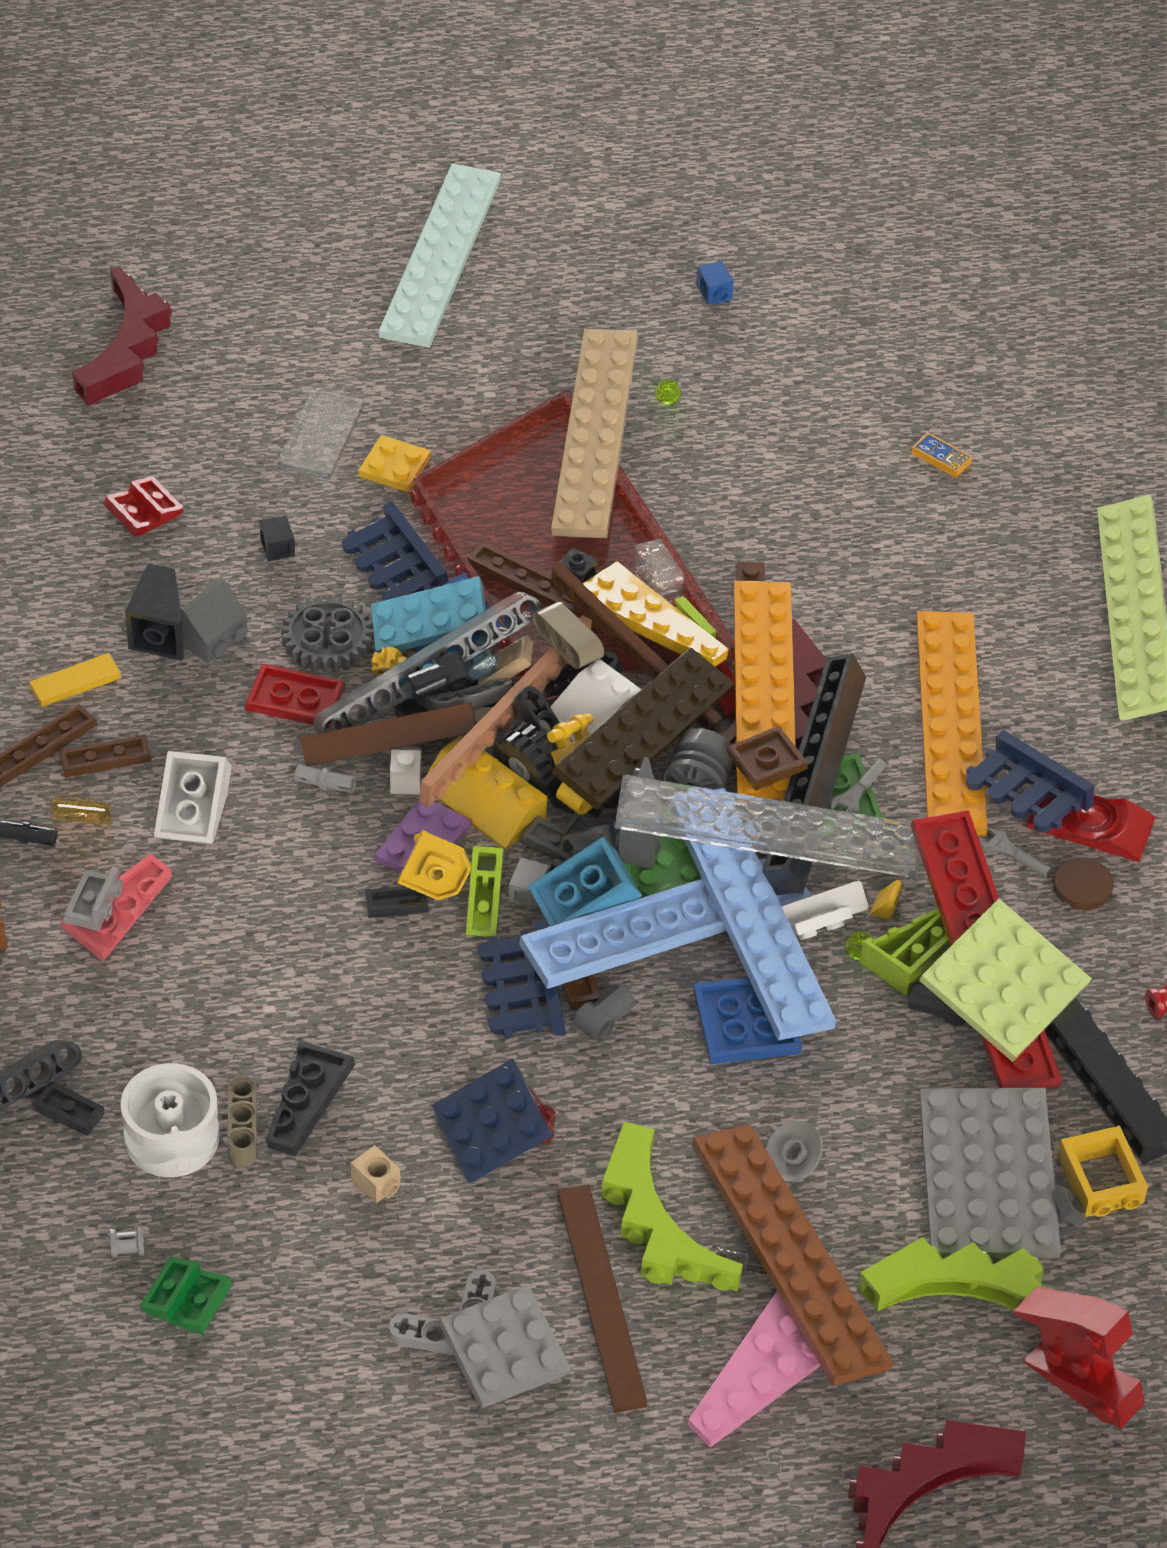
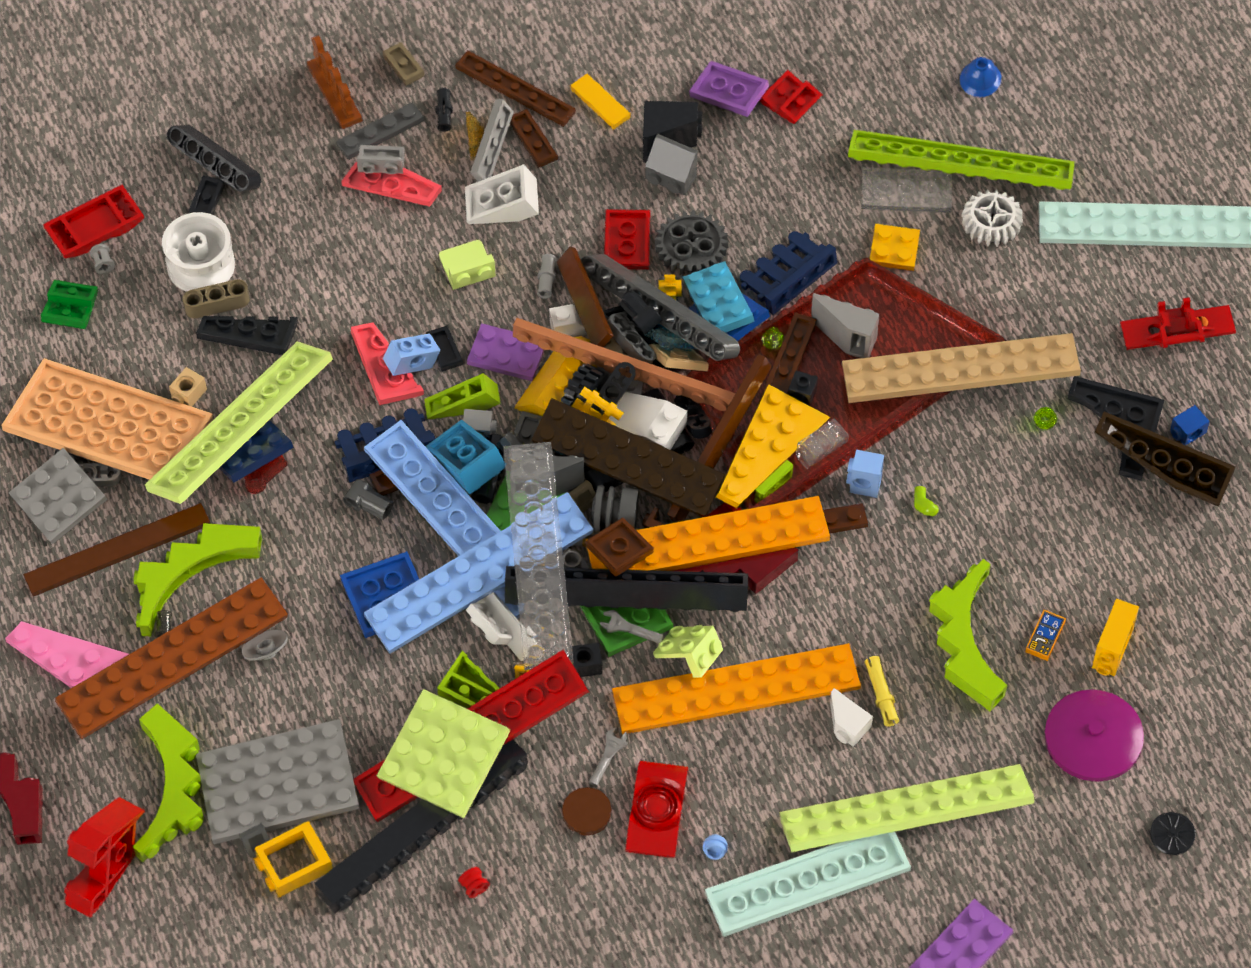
camera: 80 degrees right, 10 degrees up
(30, 906) = (380, 130): none -> dark grey plate
(61, 1241) = (94, 222): none -> red slope
(92, 784) = (492, 140): none -> light grey plate
(113, 552) = (729, 88): none -> medium lavender plate
(137, 339) = (962, 44): dark red arch -> none
(183, 339) = (980, 77): none -> blue hat
(277, 538) = (780, 187): black brick -> none
(282, 851) = (467, 264): none -> yellowish green bracket
(299, 377) = (961, 159): none -> lime plate
(388, 371) = (1006, 218): none -> white gear
(402, 1273) = (103, 419): none -> light nougat plate
(409, 922) = (411, 354): none -> light blue brick
(420, 963) = (372, 348): none -> coral wing
(435, 867) = (465, 354): yellow piece -> none
(463, 1115) = (238, 422): none -> yellowish green plate
(500, 585) = (767, 338): none -> clear neon green plate
(508, 510) = (846, 325): none -> light grey slope
(568, 635) = (698, 382): dark tan beam -> none
(576, 262) = (1175, 322): none -> red piece
(692, 324) = (1122, 403): none -> black plate
(710, 540) = (865, 473): none -> light blue brick
(750, 514) = (923, 504): none -> lime arm
(771, 292) = (1169, 460): none -> dark brown wedge
(856, 939) = (480, 654): clear neon green plate -> none
(895, 741) = (696, 644): none -> yellowish green bracket
(933, 520) = (966, 666): none -> lime arch
(950, 399) = (1115, 637): none -> yellow window
(984, 597) = (884, 699): none -> light yellow pin
(1014, 630) = (849, 719): none -> white slope
(1041, 772) = (674, 764): dark blue fence -> none
(1071, 446) = (1094, 735): none -> magenta dish
(1151, 777) = (715, 846): none -> light blue plate

